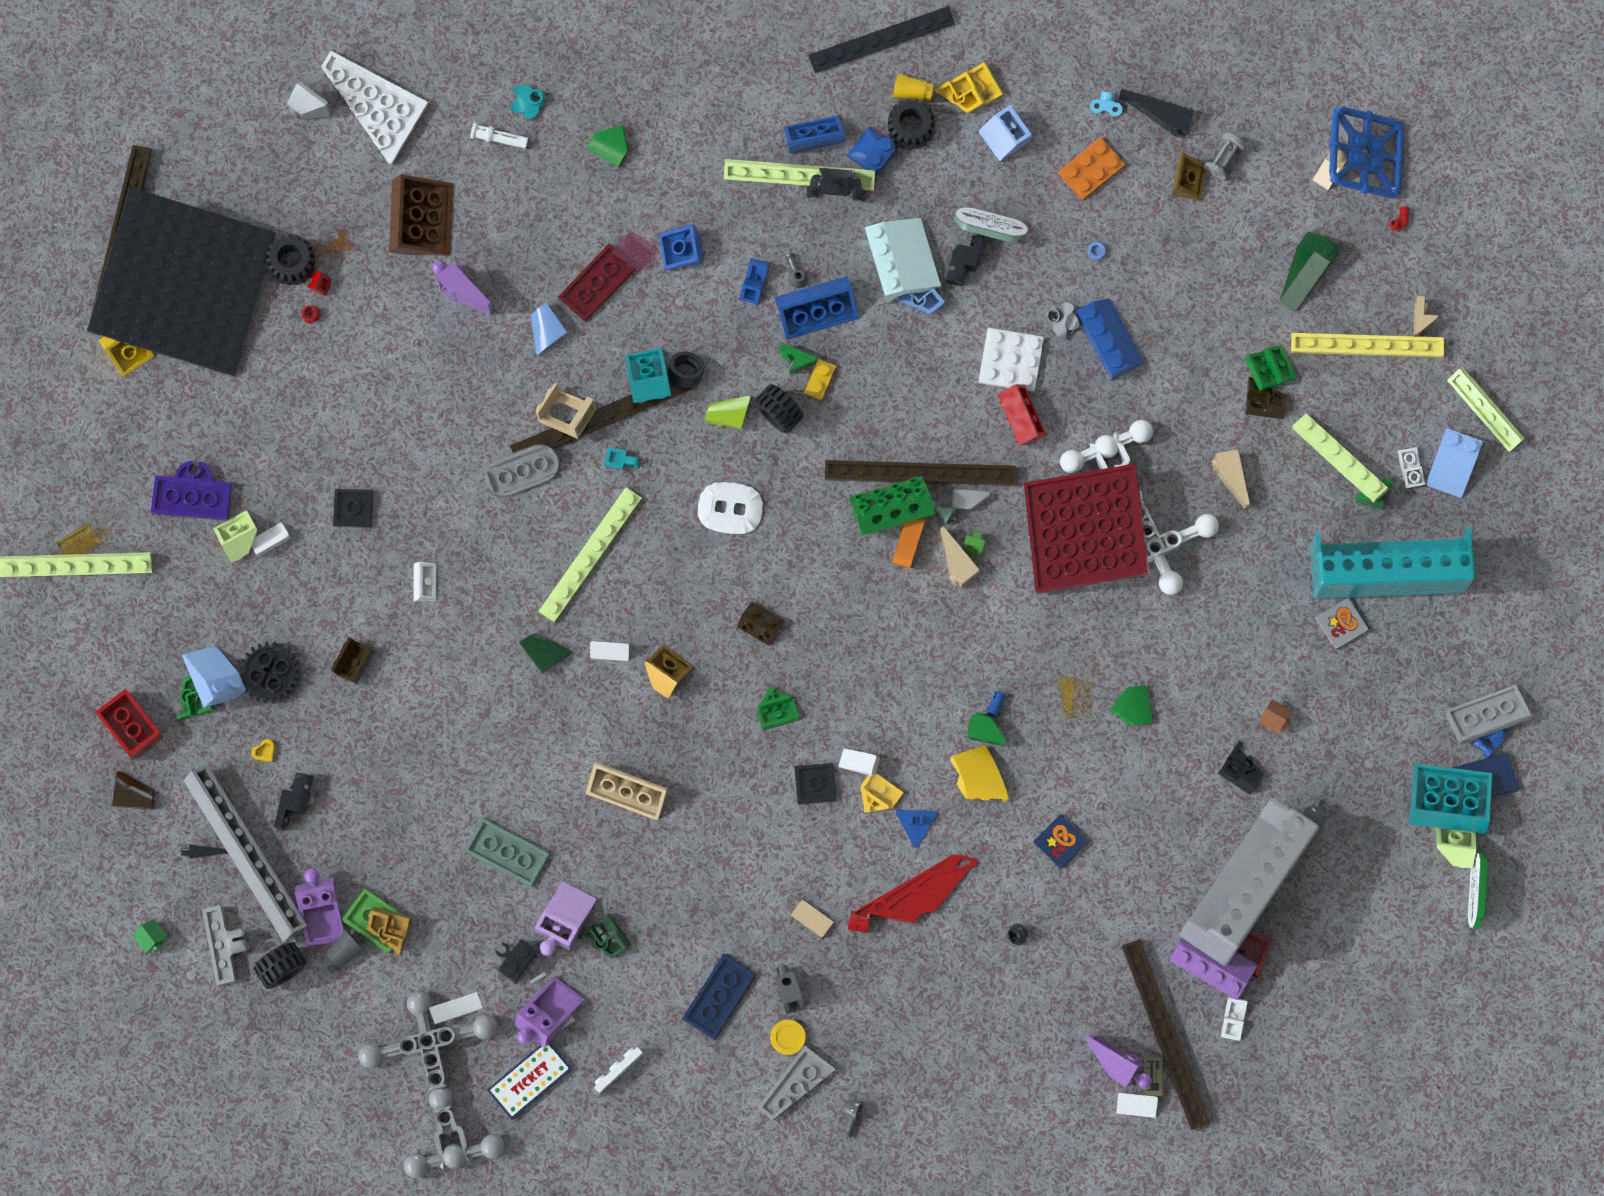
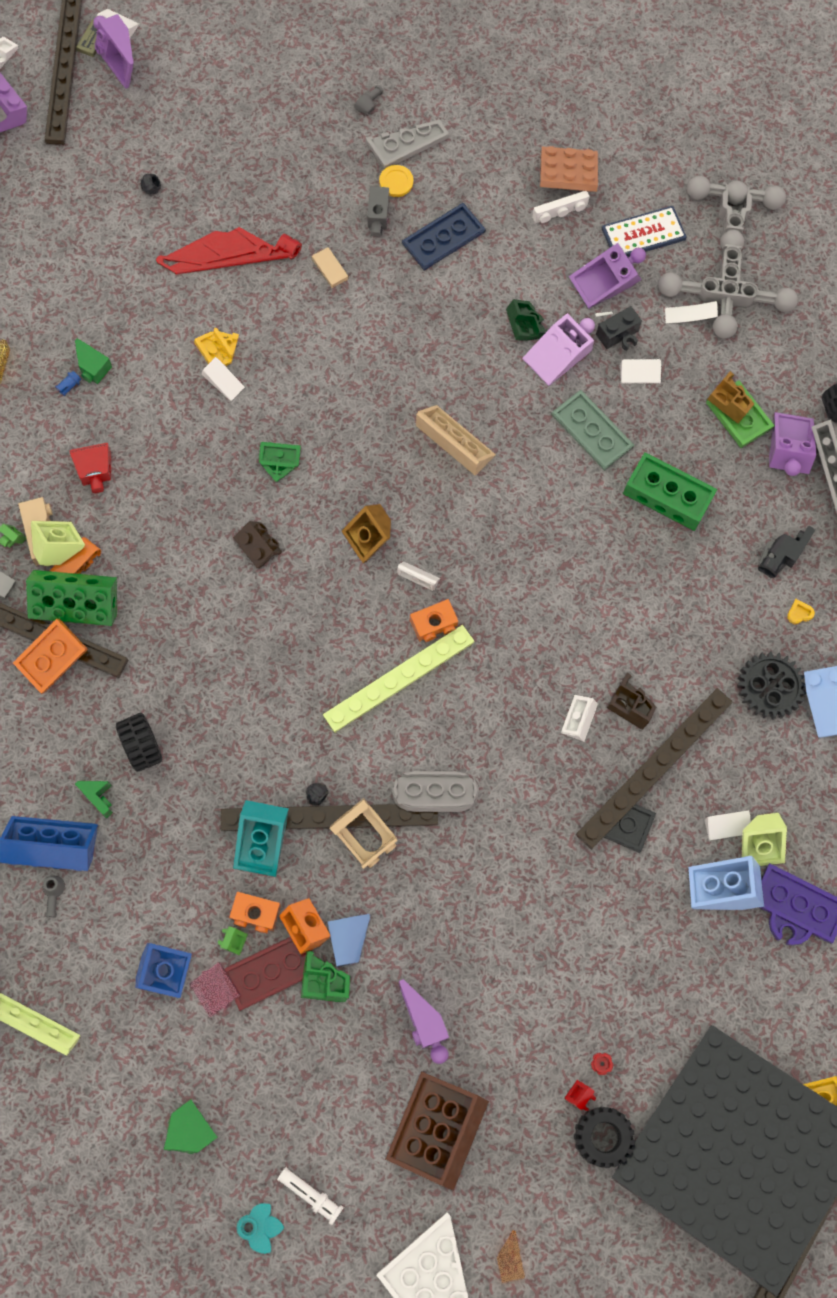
camera: 165 degrees left, 5 degrees down
(256, 485) = (726, 885): none -> light blue slope
(332, 150) = (510, 1260): none -> clear orange slope
(335, 244) = (546, 1138): clear orange hose -> none
(341, 951) = (783, 397): dark grey plant -> none
(346, 562) = (653, 769): none -> dark brown plate
(352, 660) = (682, 663): dark brown bracket -> none
(378, 609) = (637, 708): none -> dark brown slope
(409, 801) = (681, 488): none -> green brick
(482, 927) = (640, 371): none -> white slope
(543, 651) = (485, 599): dark green slope -> none
(552, 289) = (323, 981): none -> green slope
(577, 624) = (442, 612): none -> orange brick
(593, 322) = (304, 925): none -> orange brick
(618, 430) = (316, 793): none -> black piece
(618, 459) = (329, 764): teal plate -> none
(625, 1114) = (569, 169): none -> nougat plate
(635, 291) = (233, 940): none -> bright green tile
(637, 324) = (245, 903): none -> orange brick
(683, 380) = (203, 833): black tyre -> none
(728, 412) = (193, 767): lime slope -> none
(728, 521) = (228, 681): white piece -> none
(754, 281) = (102, 900): blue slope -> none
(815, 783) = (273, 380): black tile -> none
(820, 380) = (83, 764): yellow plate -> none
(887, 452) = (50, 656): none -> orange plate
(916, 823) = (195, 312): blue piece -> none
(929, 548) = (54, 541): none -> yellowish green slope
(935, 634) = (93, 465): none -> torso
(945, 513) = (21, 575): sand green piece -> none
(979, 775) = (115, 325): yellow slope -> none
(1060, 841) = (72, 246): dark blue tile -> none

